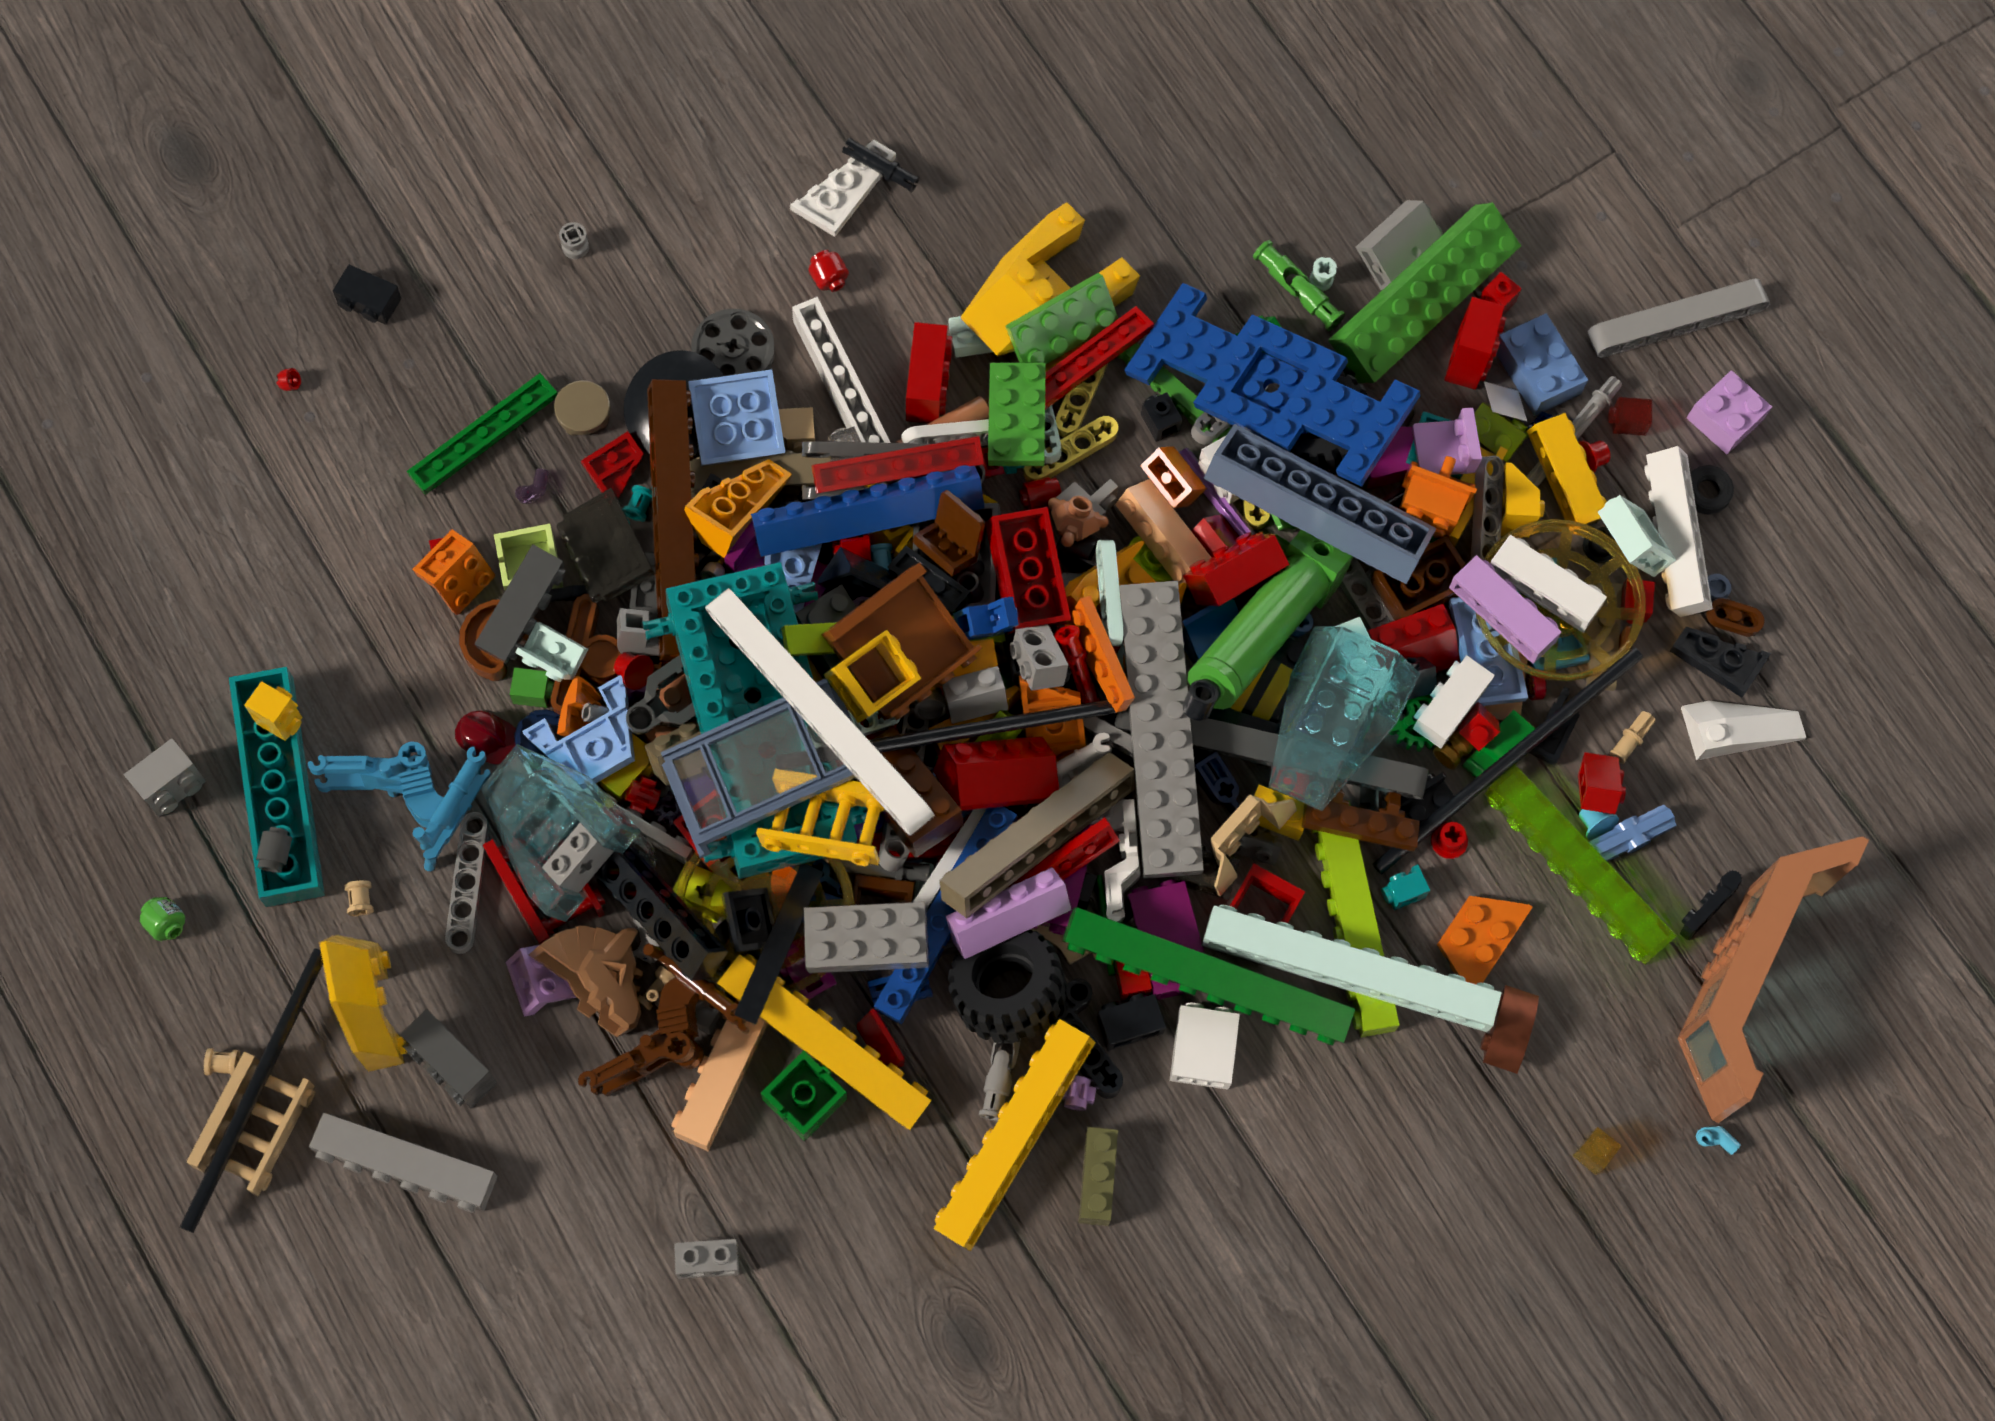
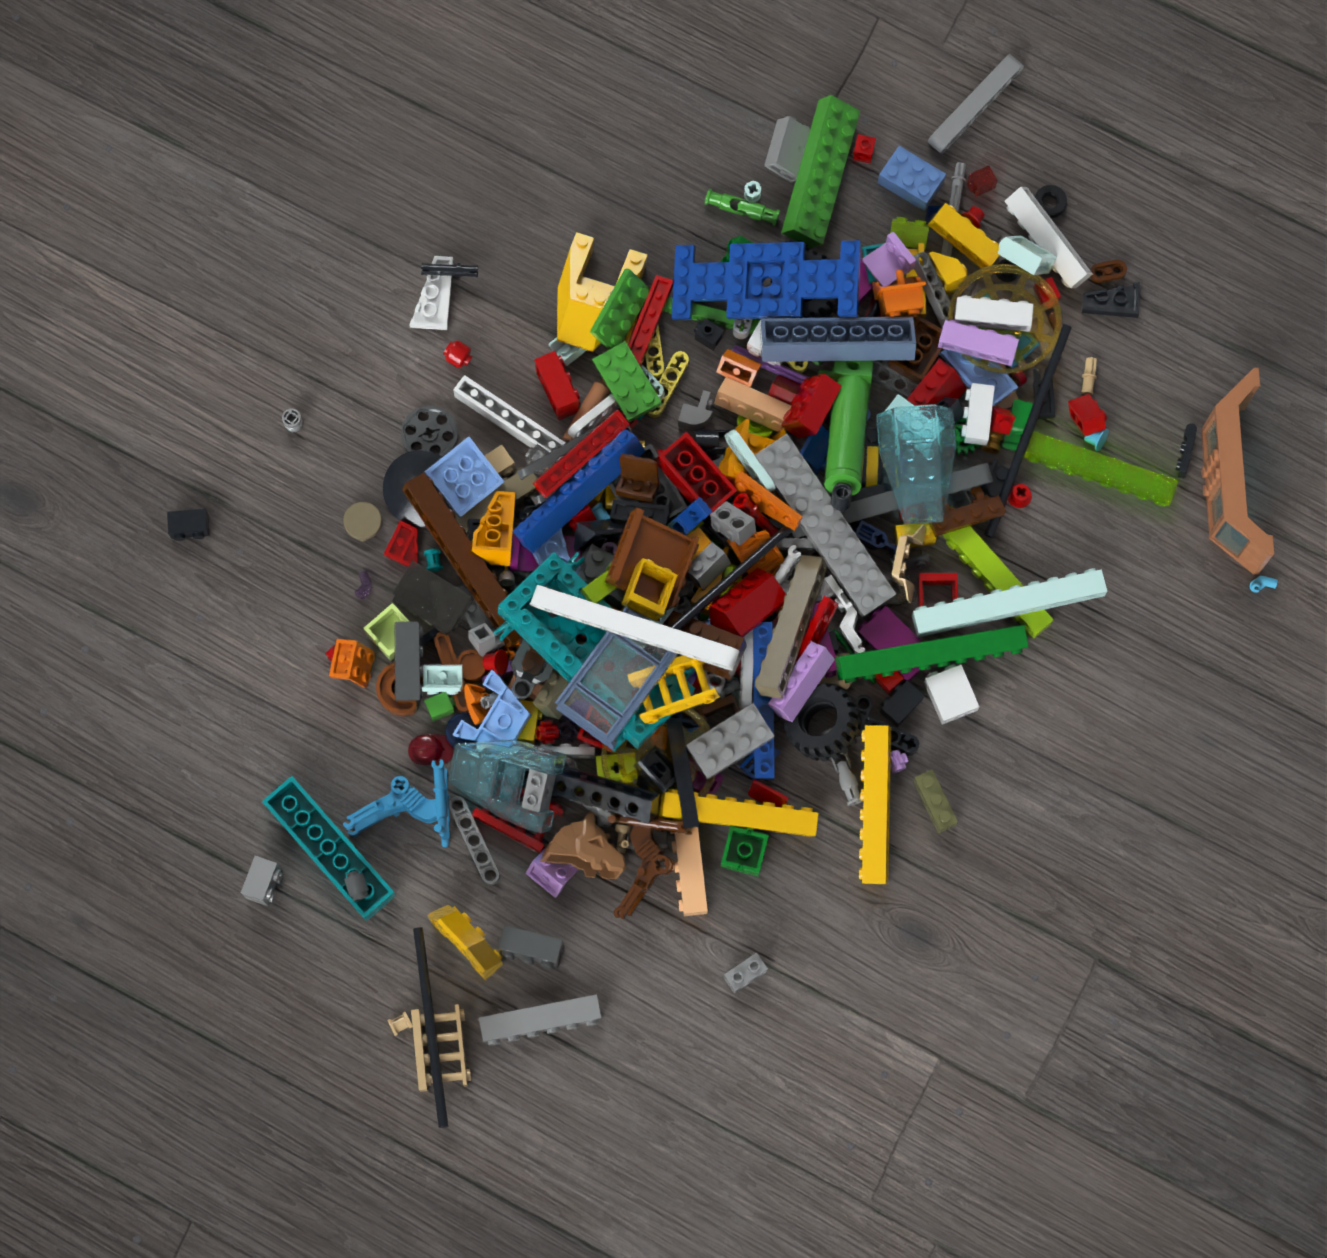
camera: 25 degrees left, 5 degrees up
(161, 918) = (311, 962): bright green head -> none
(274, 710) = (307, 805): yellow brick -> none
(289, 374) = (174, 602): red hinge -> none
(359, 898) = (417, 885): tan bush -> none
(482, 433) = (313, 570): green plate -> none
(1038, 492) = (665, 421): red brick -> none
(1075, 519) = (699, 426): nougat rock -> none
(1406, 889) = (1011, 539): teal brick -> none
(1475, 343) = (869, 188): red brick -> none
(1481, 935) = (1068, 542): orange wing -> none
(1505, 401) = (904, 212): white sticker -> none
(1511, 1029) = (1118, 595): copper brick -> none
(1596, 1150) = (1201, 628): clear yellow brick -> none
(1634, 833) = (1121, 433): medium blue piece -> none
(1719, 586) = (1088, 257): sand blue tile -> none
(1729, 412) = (1037, 147): lavender brick -> none
(1734, 728) = (1142, 338): white wedge -> none

